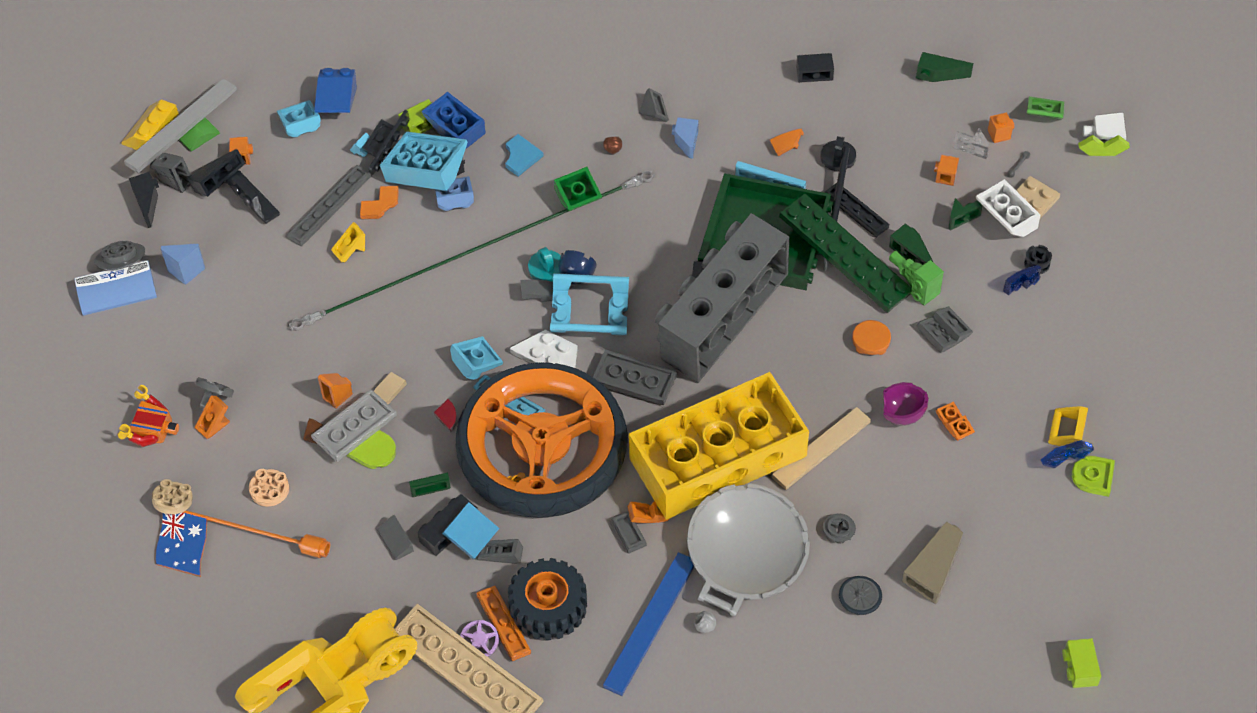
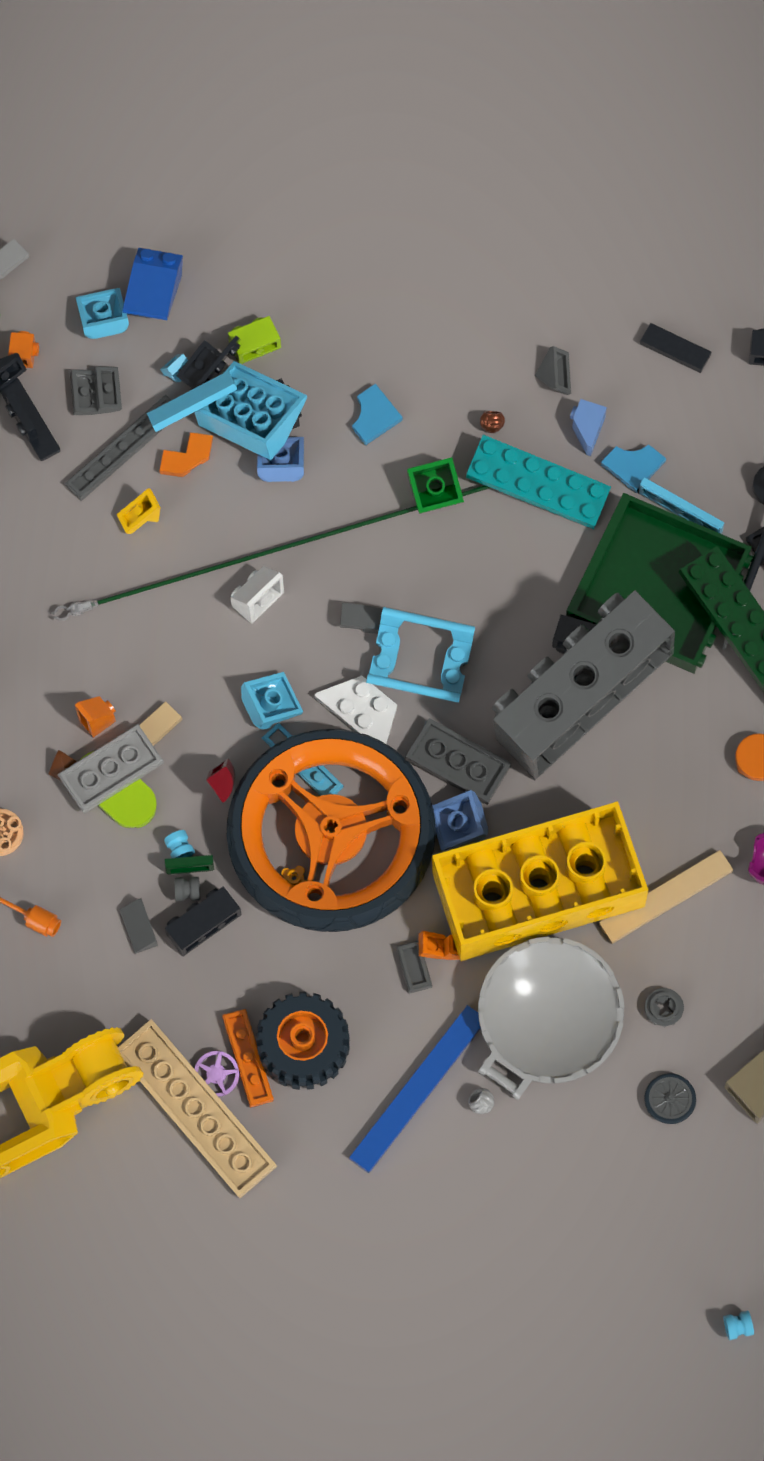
camera: 10 degrees right, 15 degrees up
(301, 171) = (95, 391): none -> dark grey slope
(378, 160) = (192, 401): none -> medium azure tile
(418, 470) = (179, 845): none -> medium azure wheel
(431, 503) = (187, 889): none -> dark grey wheel
(452, 284) = (257, 593): none -> white slope
(454, 119) = (297, 355): blue slope -> none
(470, 530) = (227, 937): dark azure tile -> none
(513, 551) = (273, 970): dark grey slope -> none
(544, 264) = (378, 584): teal tile -> none
(575, 263) = (413, 597): dark blue cylinder -> none
(642, 412) = (460, 821): none -> medium blue slope
(656, 178) = (538, 481): none -> teal plate
(726, 159) = (633, 466): none -> dark azure tile
(741, 79) = (675, 347): none -> black tile
(786, 141) = (714, 454): orange slope -> none

